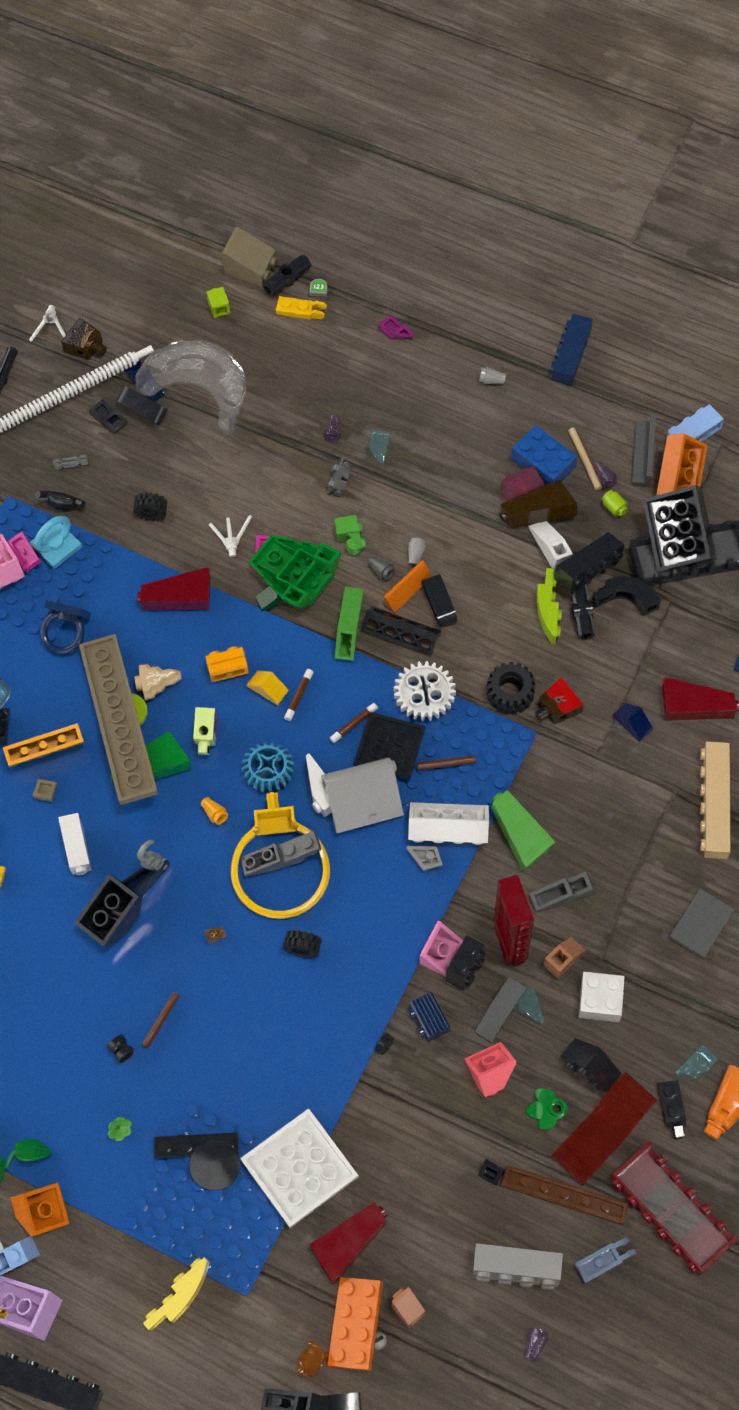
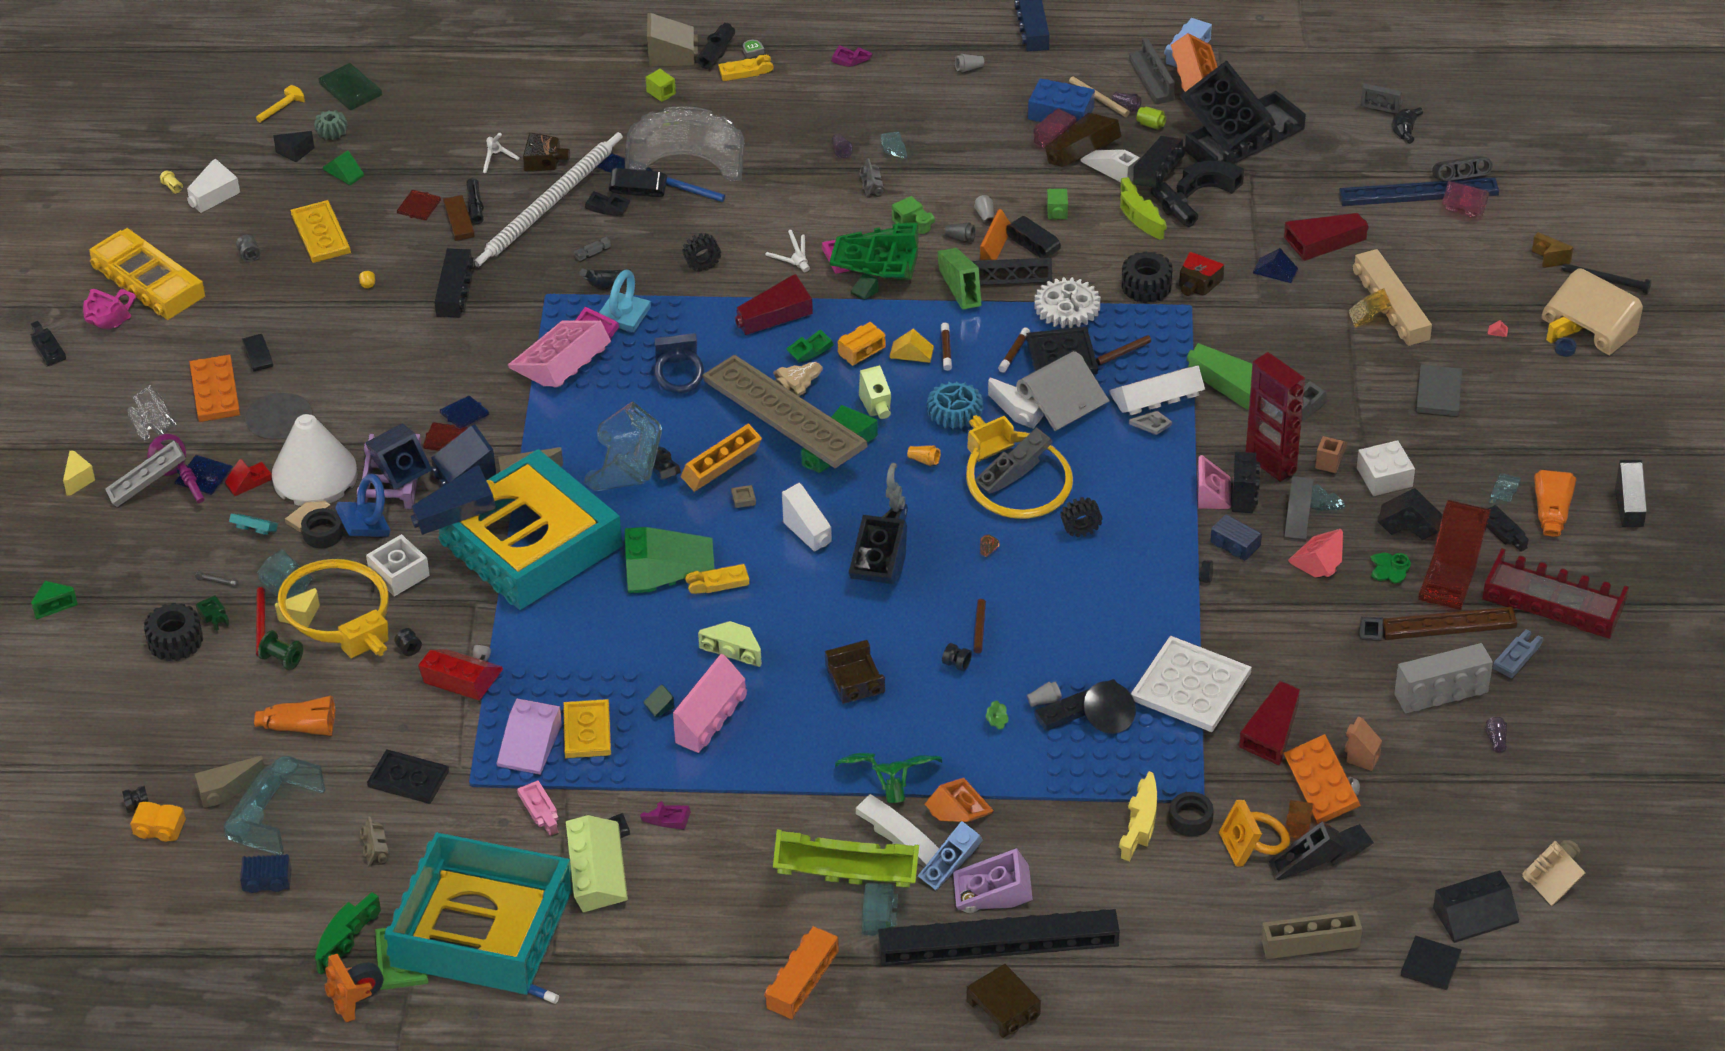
camera: 25 degrees left, 20 degrees down
(30, 1027) = (854, 672): none -> dark brown panel
(173, 1124) = (1045, 694): none -> light grey cone
(180, 420) = (695, 189): none -> blue bar
(183, 649) = (810, 348): none -> green slope
(225, 1291) = (1191, 827): none -> black tyre
(251, 1358) = (1242, 833): none -> light orange tile
(479, 571) = (1057, 204): none -> bright green brick
(687, 805) = (1365, 309): none -> clear yellow slope

